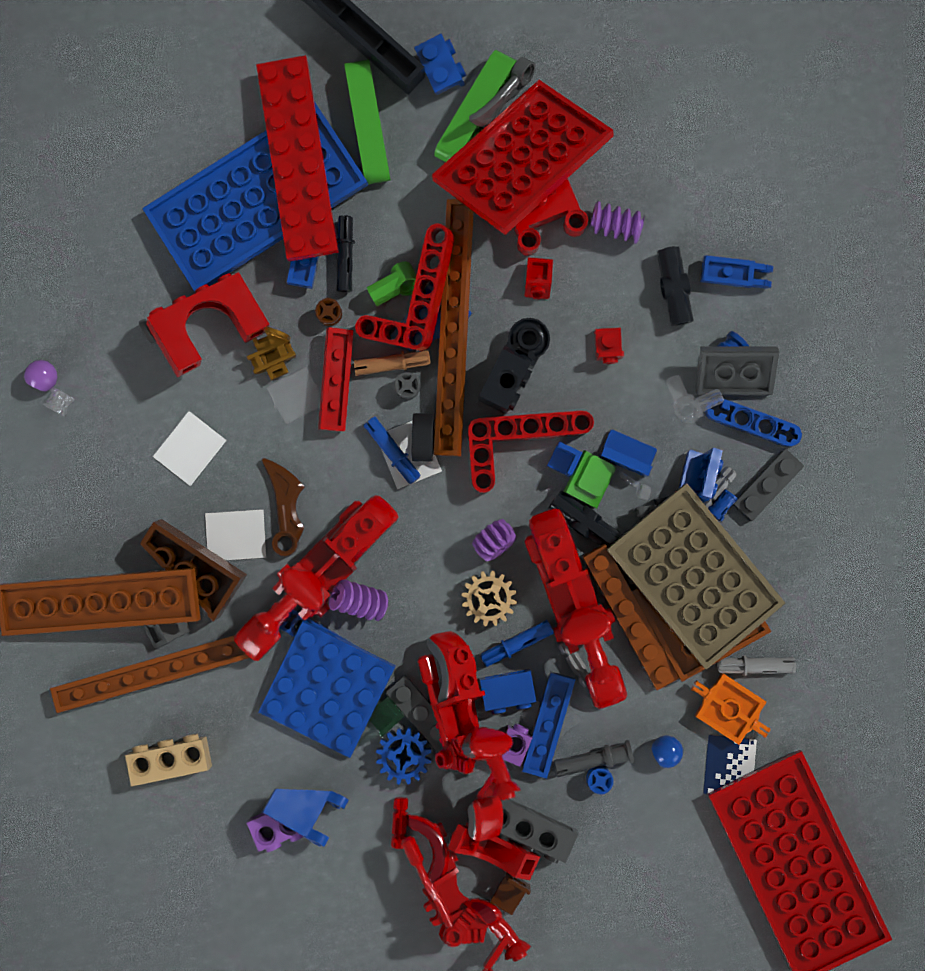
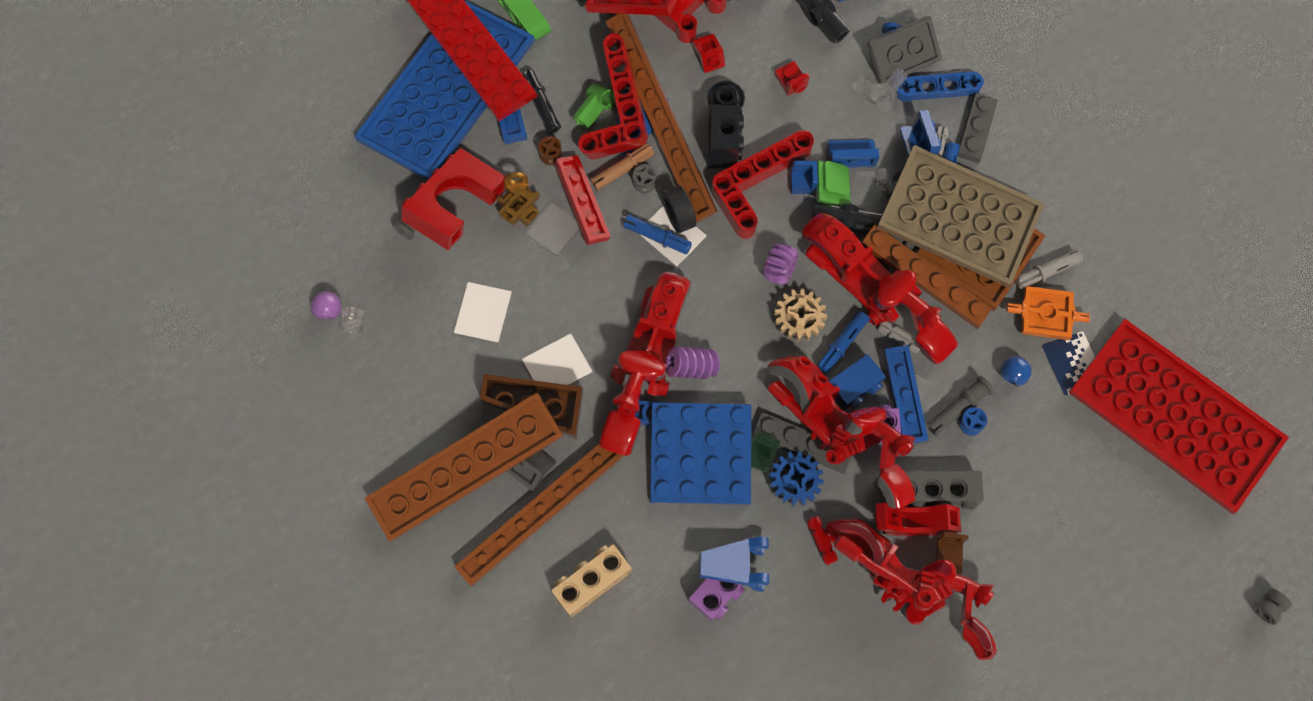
camera: 25 degrees left, 15 degrees down
(286, 492) = (584, 308): reddish brown piece -> none

